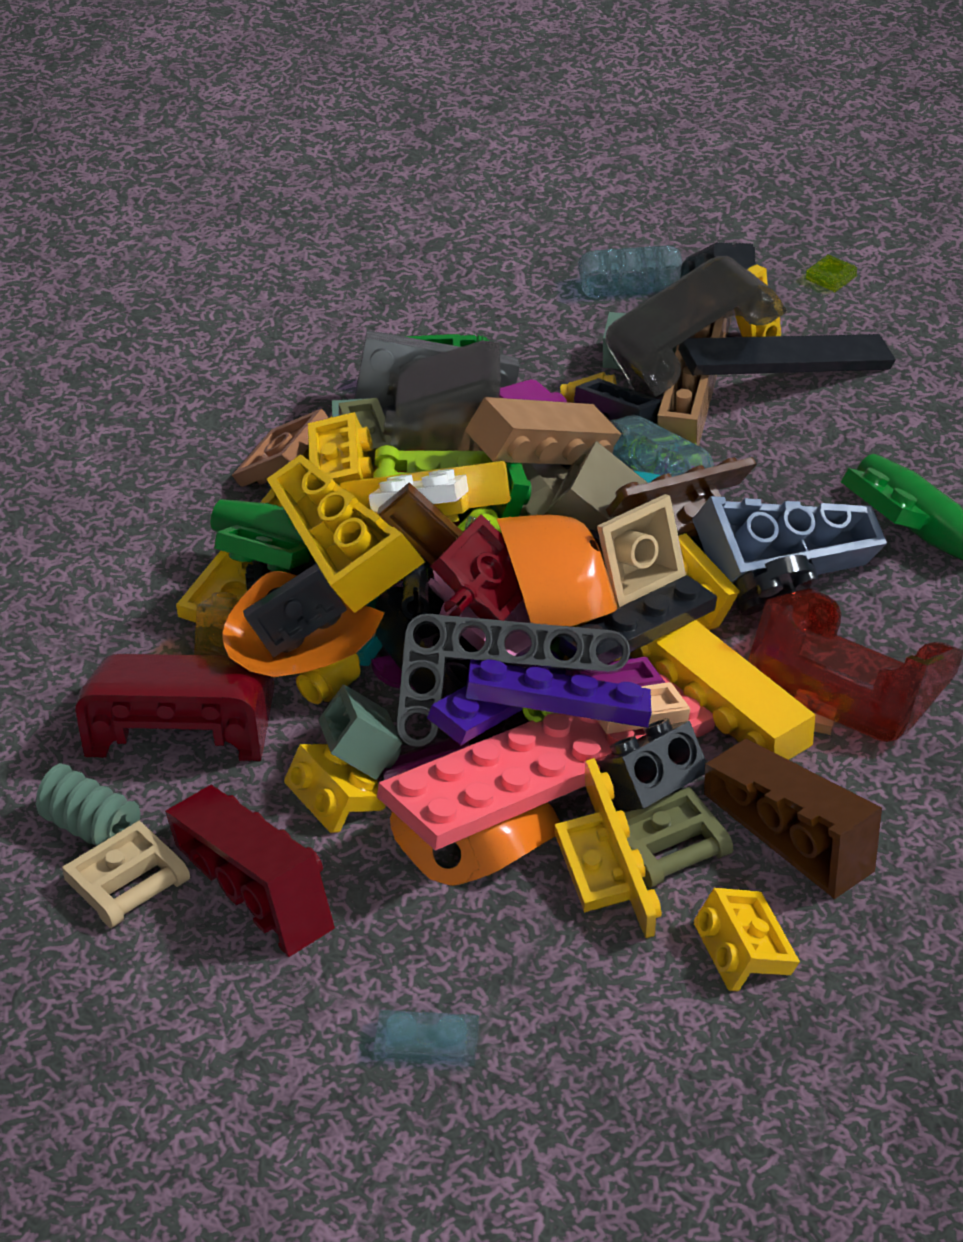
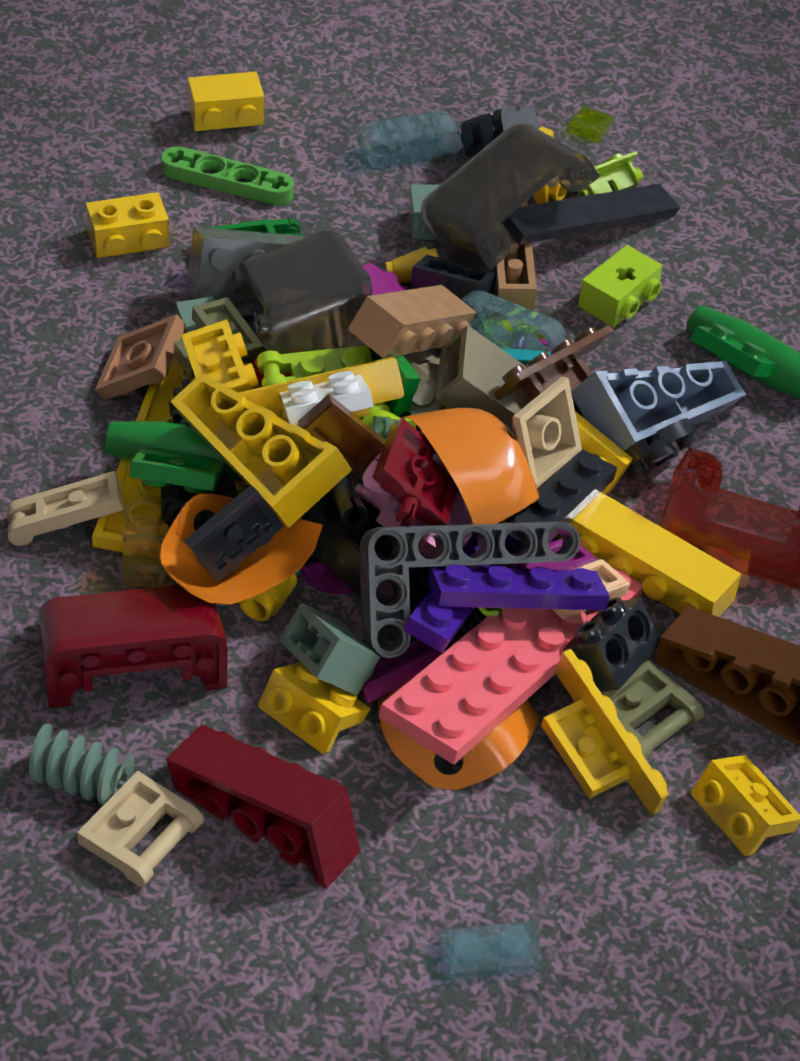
camera: 20 degrees left, 5 degrees up
(157, 575) = (63, 507): none -> tan plate
(317, 328) = (127, 225): none -> yellow brick
(455, 221) = (225, 101): none -> yellow brick
(471, 305) = (179, 164): none -> bright green beam
(799, 428) = (620, 286): none -> lime brick
(838, 318) = (617, 171): none -> lime hinge

